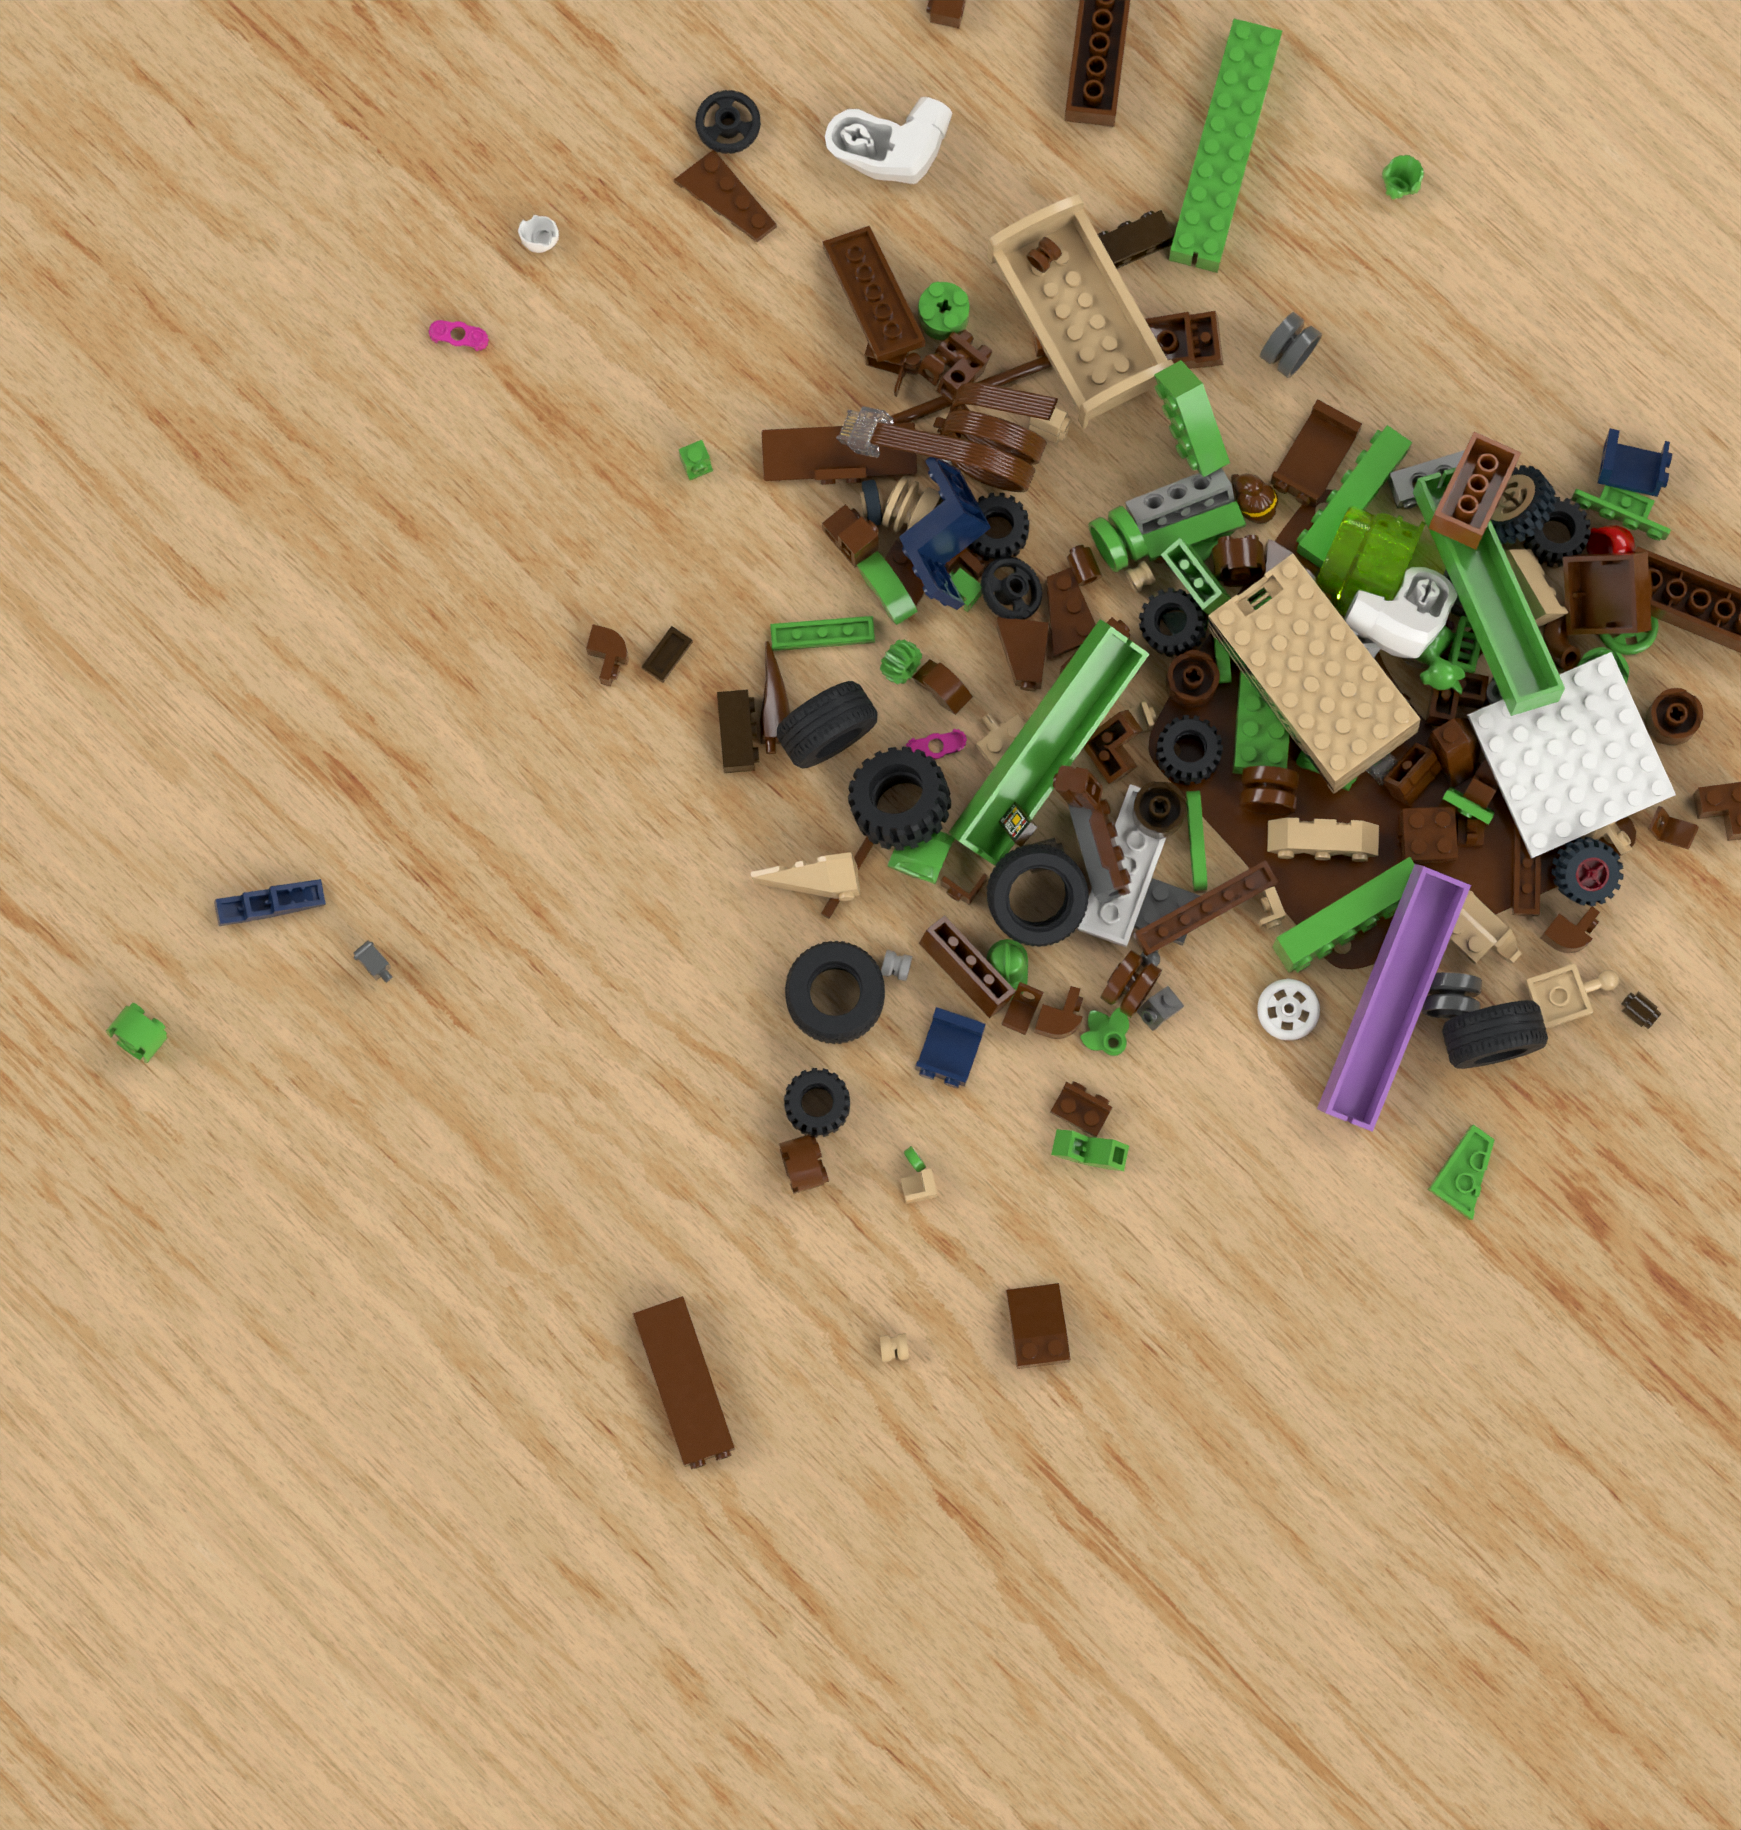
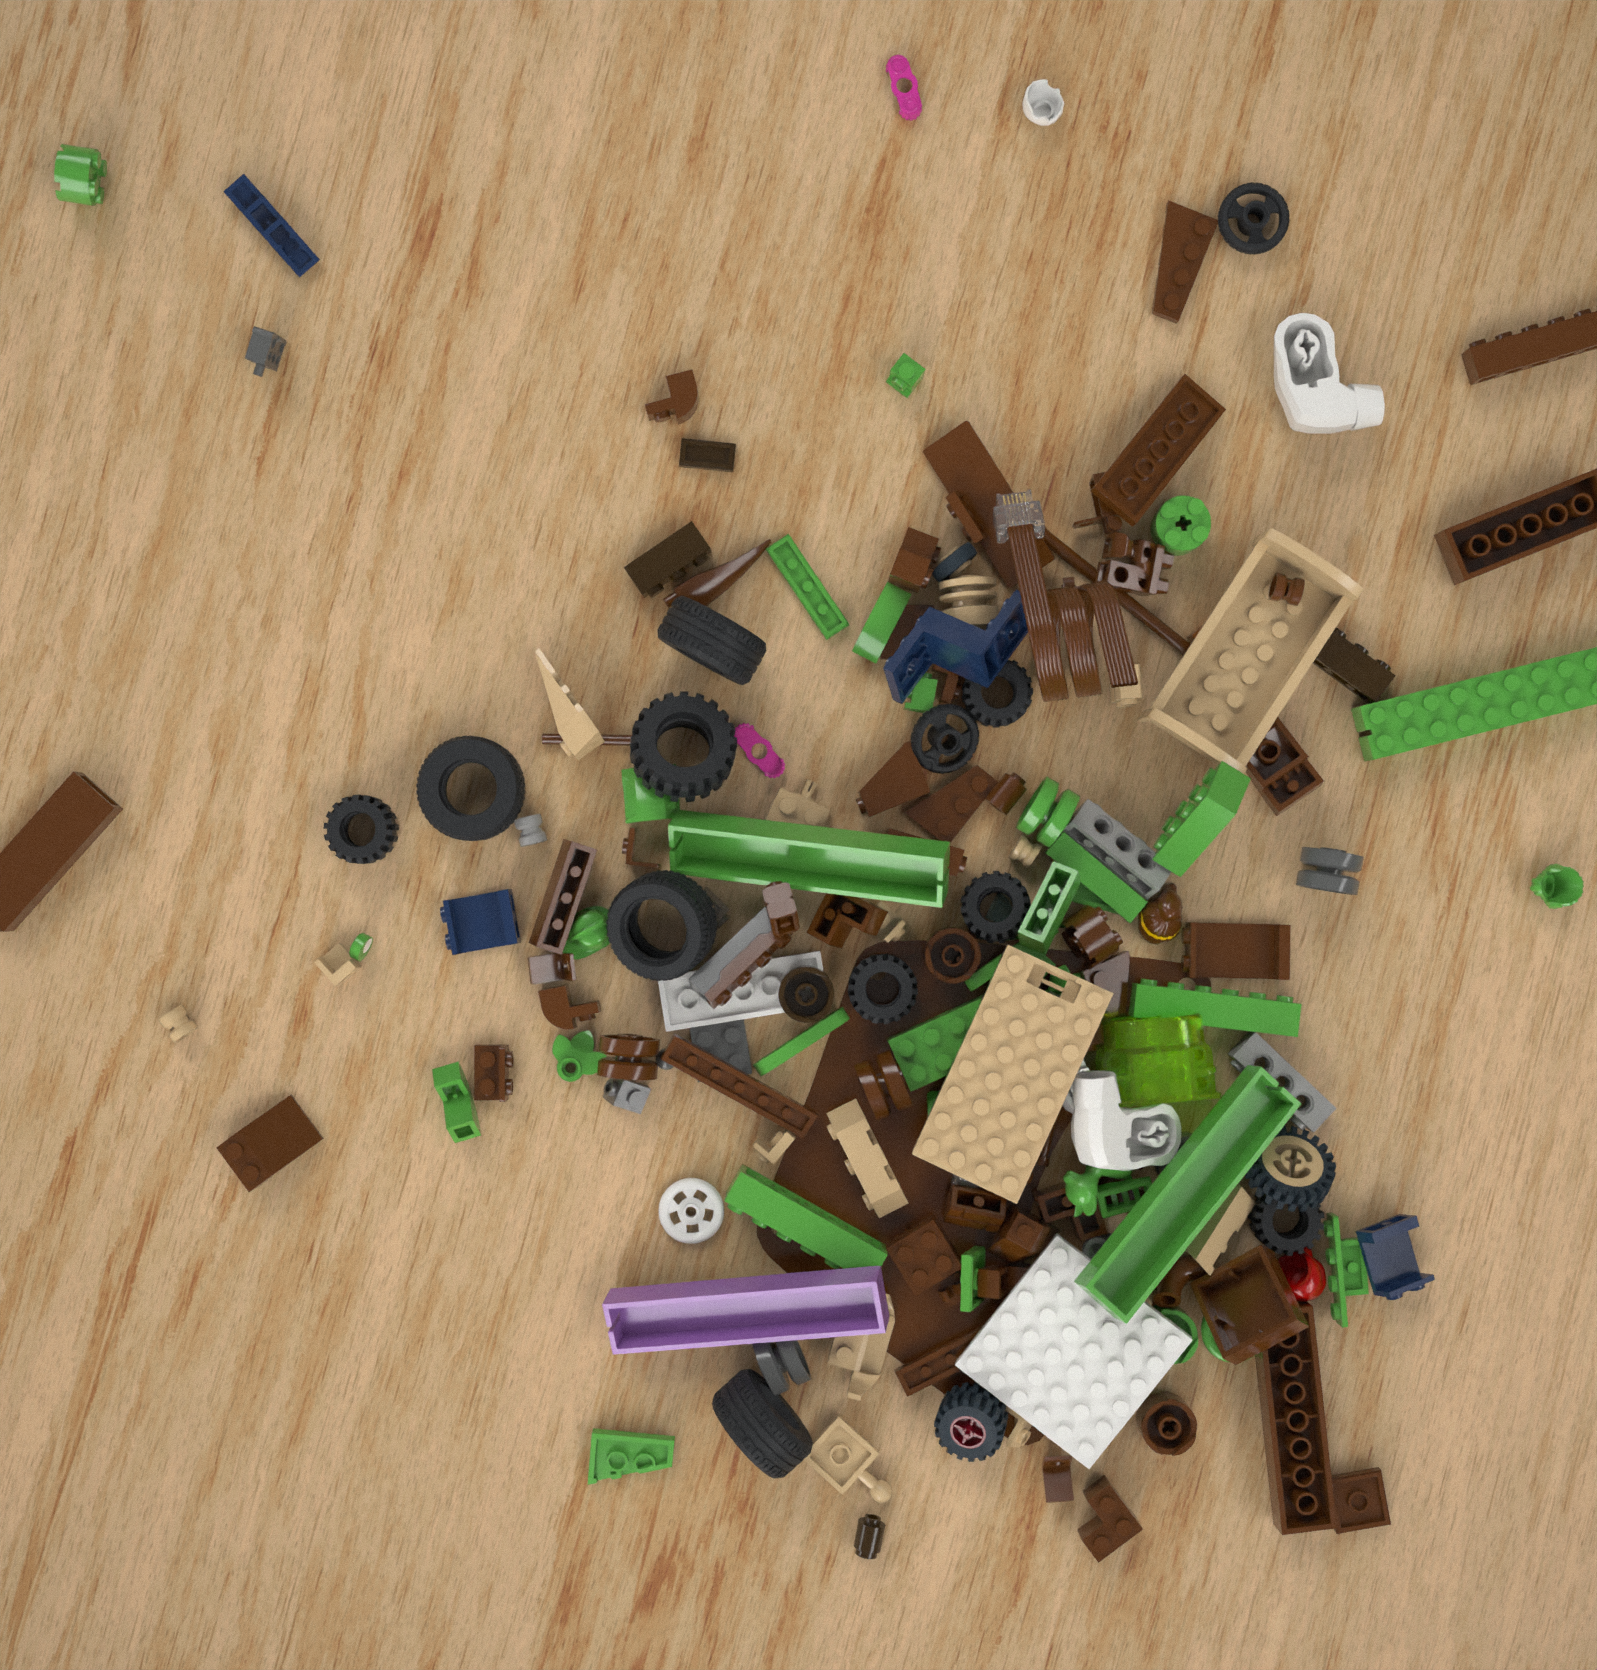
camera: 60 degrees right, 10 degrees up
(802, 1163) = (295, 848): reddish brown brick -> none
(901, 661) = (817, 674): bright green gear -> none
(943, 685) = (816, 726): reddish brown brick -> none
(1018, 824) = (716, 871): tile -> none
(1474, 490) = (1277, 1131): dark orange brick -> none
(1571, 938) = (902, 1436): reddish brown brick -> none

